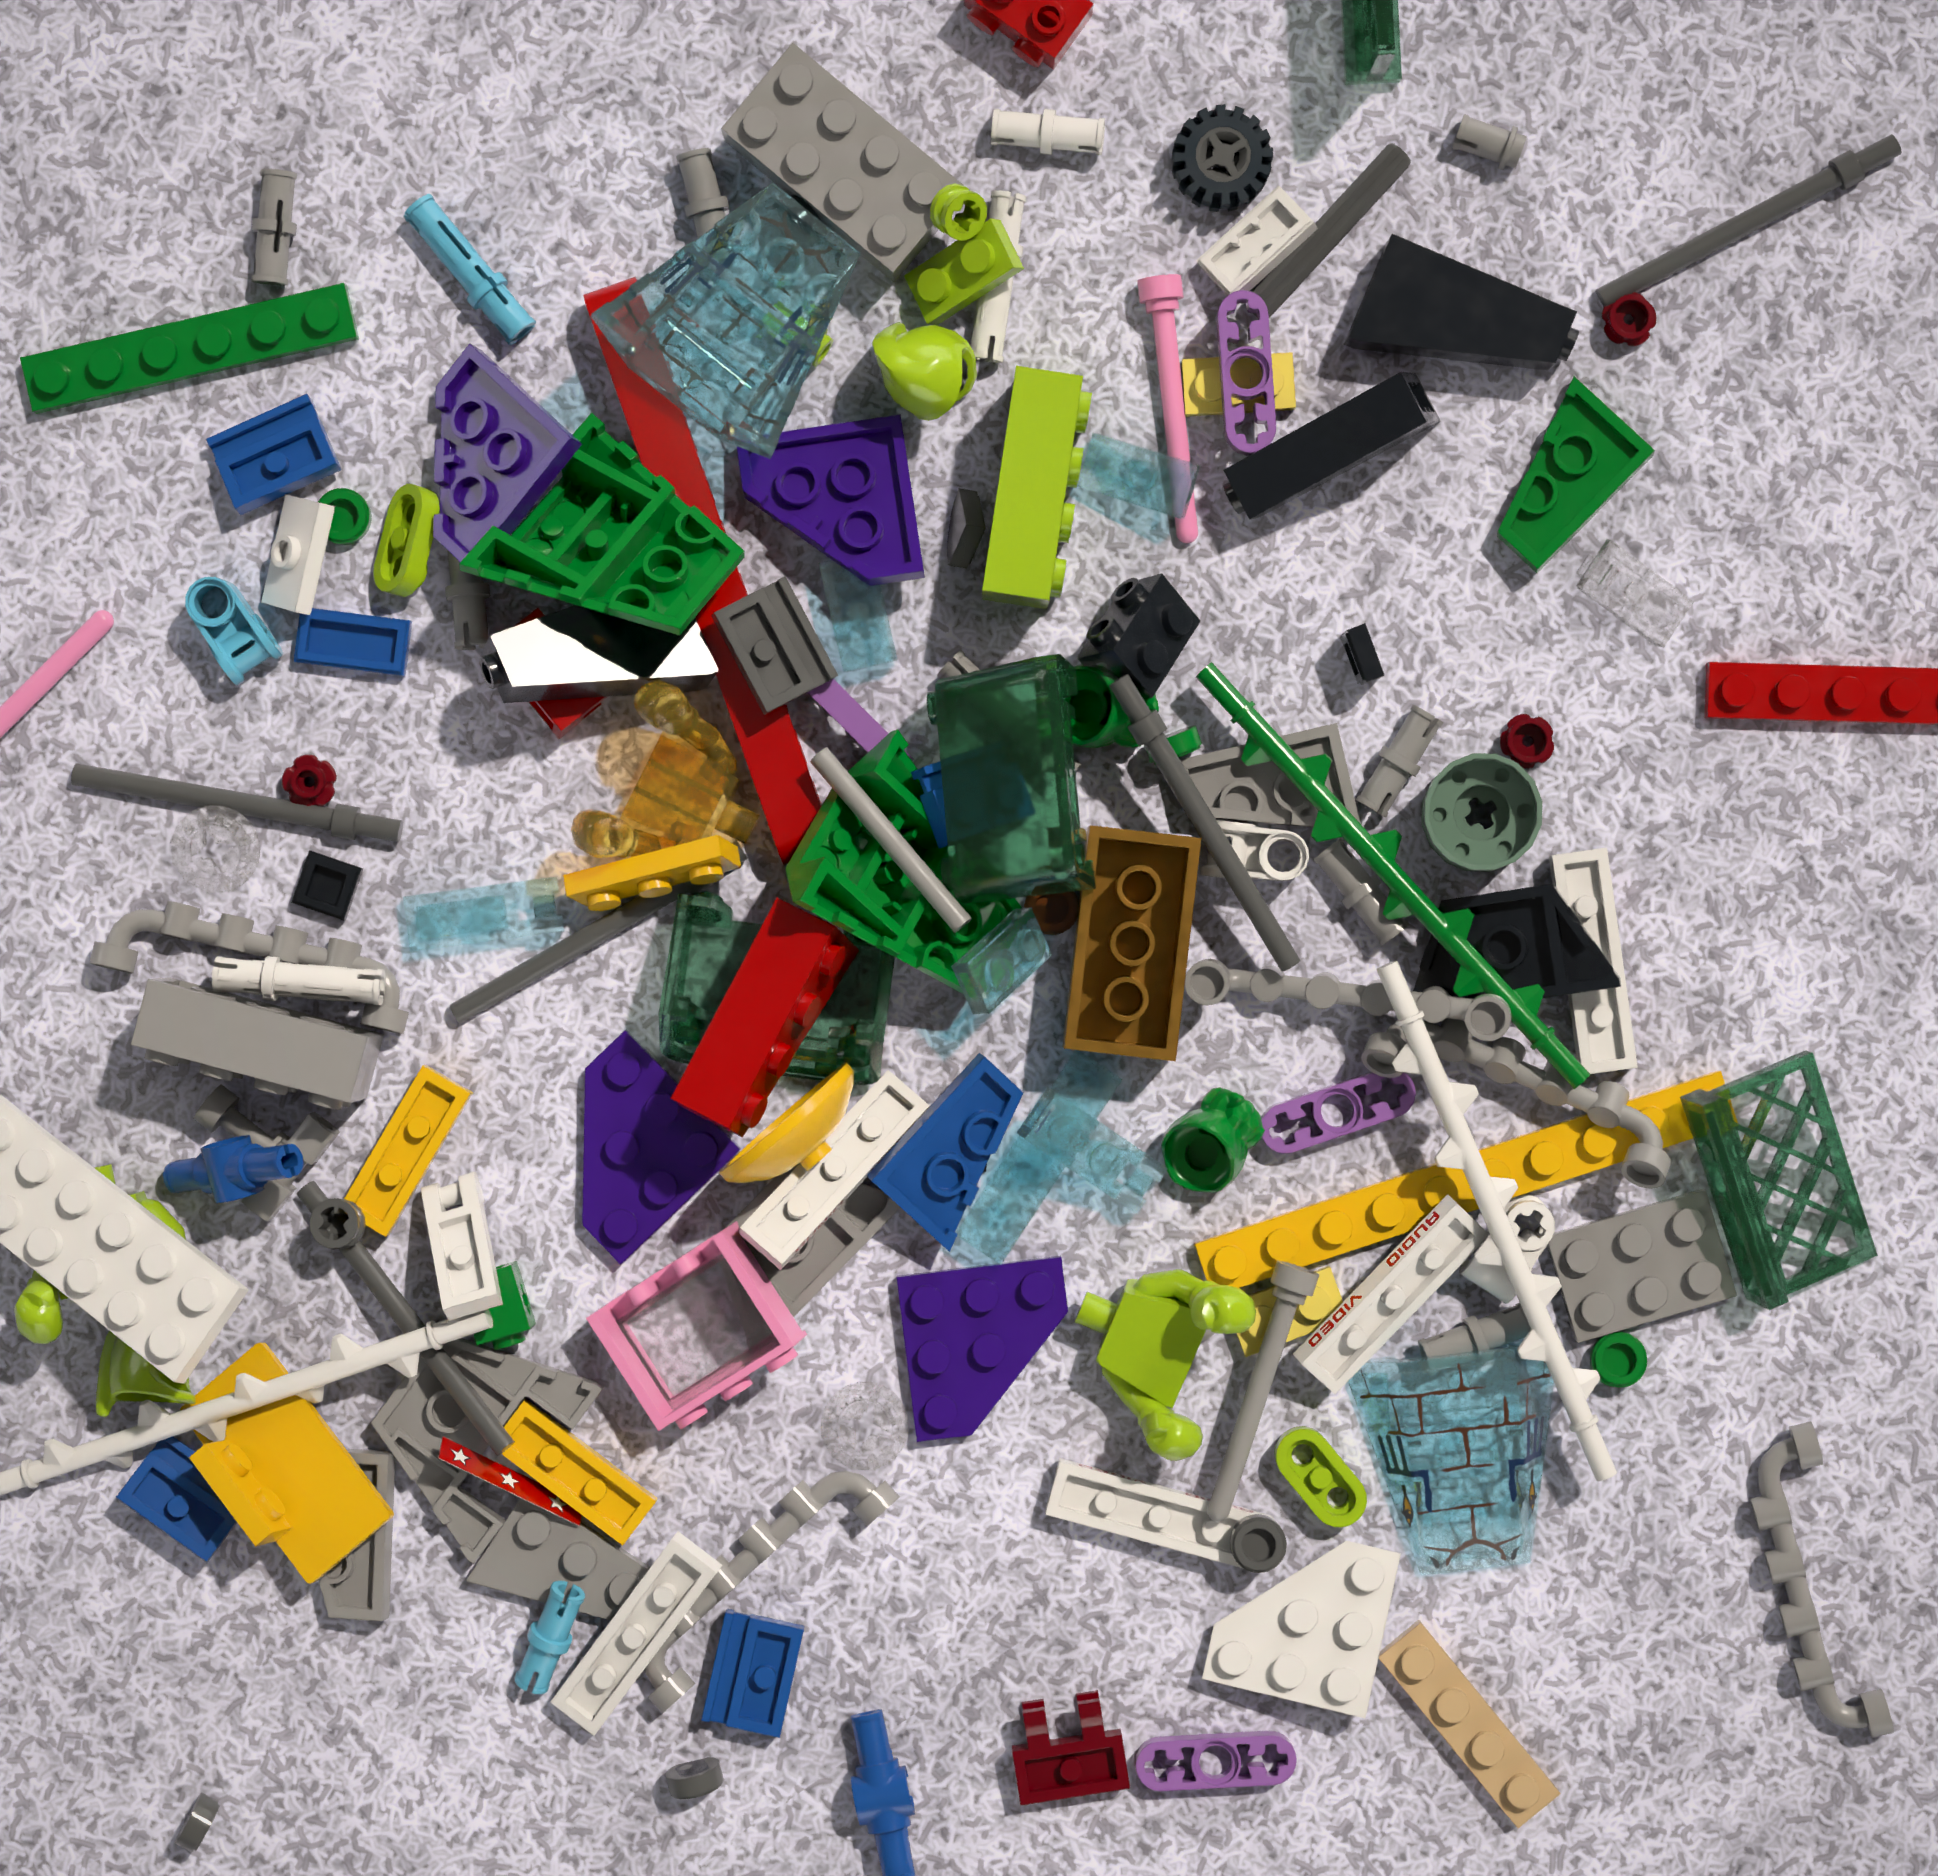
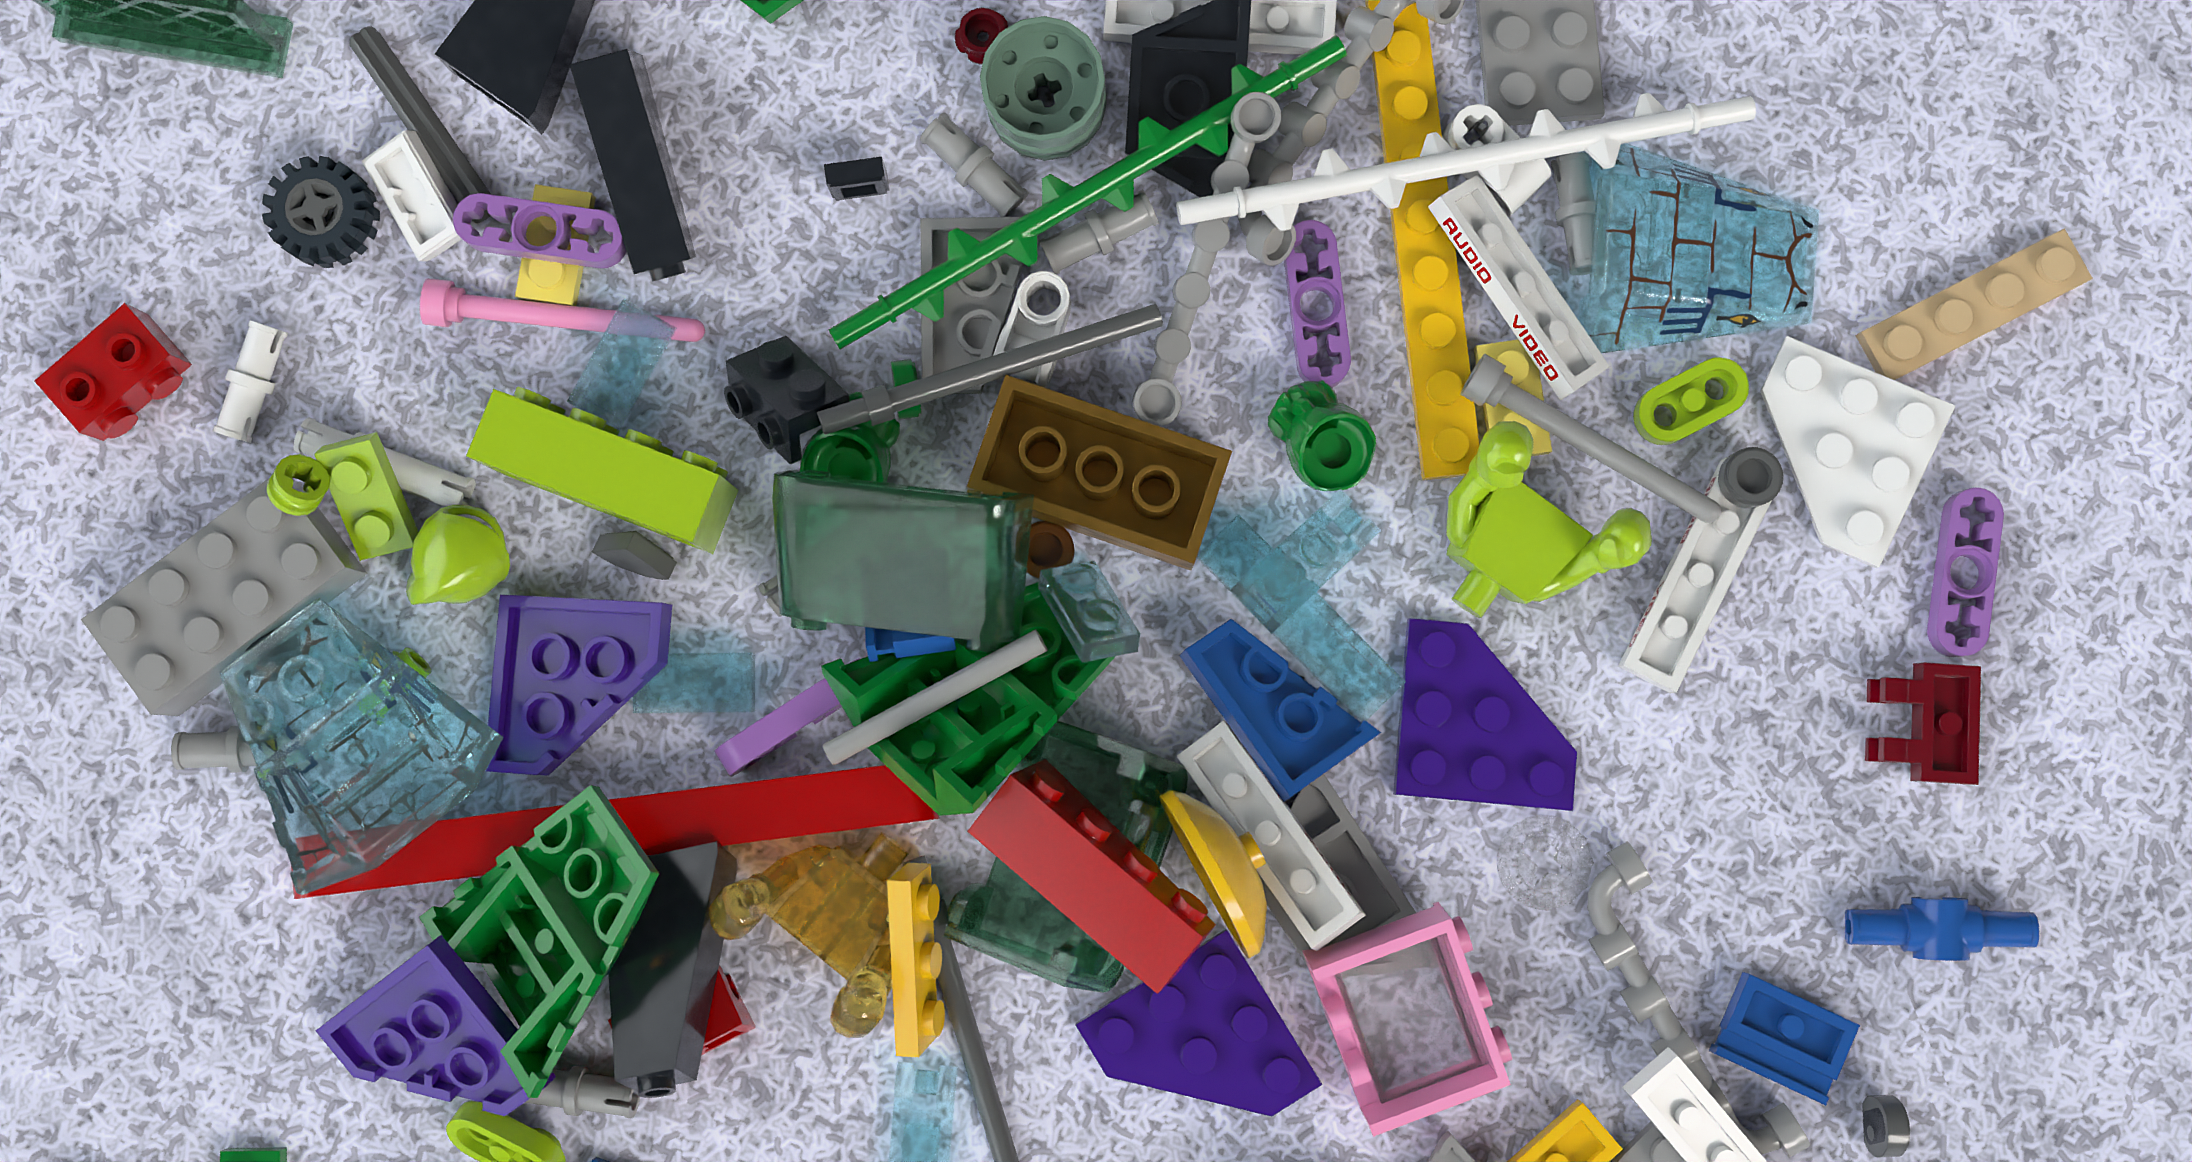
camera: 70 degrees left, 5 degrees down
(485, 288) = (262, 1001): medium azure pin -> none
(774, 645) = (703, 776): dark grey plate -> none
(1618, 1359) = (1628, 76): green tile -> none

